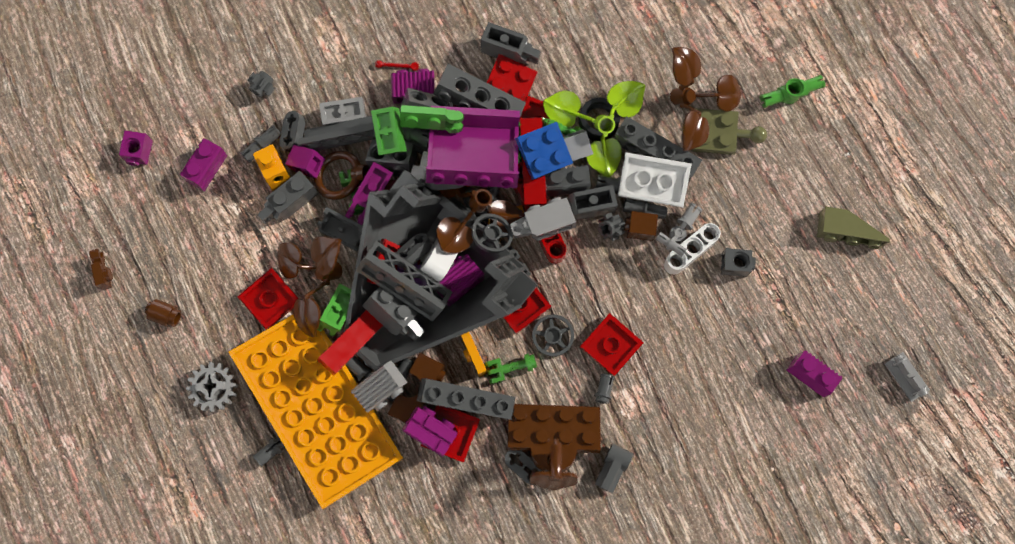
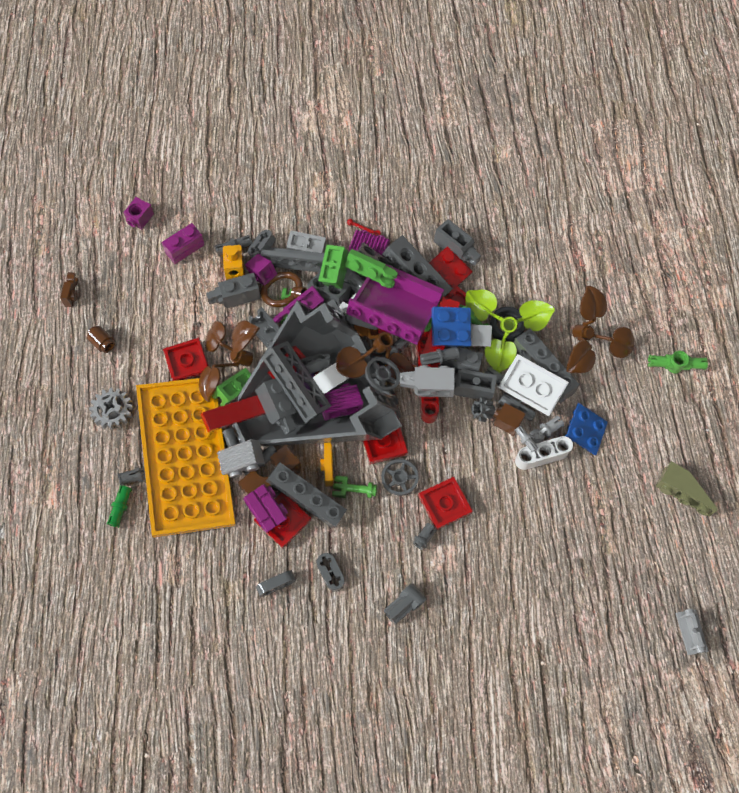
camera: 20 degrees right, 10 degrees down
(261, 84) = (253, 202): dark grey gear -> none
(271, 490) = (119, 506): none -> green pin
(473, 502) = (275, 583): none -> dark grey beam
(544, 189) = (439, 356): none -> dark grey axle
(554, 434) = (367, 555): reddish brown plate -> none
(725, 131) = (607, 372): olive plate -> none
(725, 204) = (586, 429): none -> blue hinge
(728, 266) = (576, 470): dark grey brick -> none
(814, 373) = (609, 595): magenta brick -> none

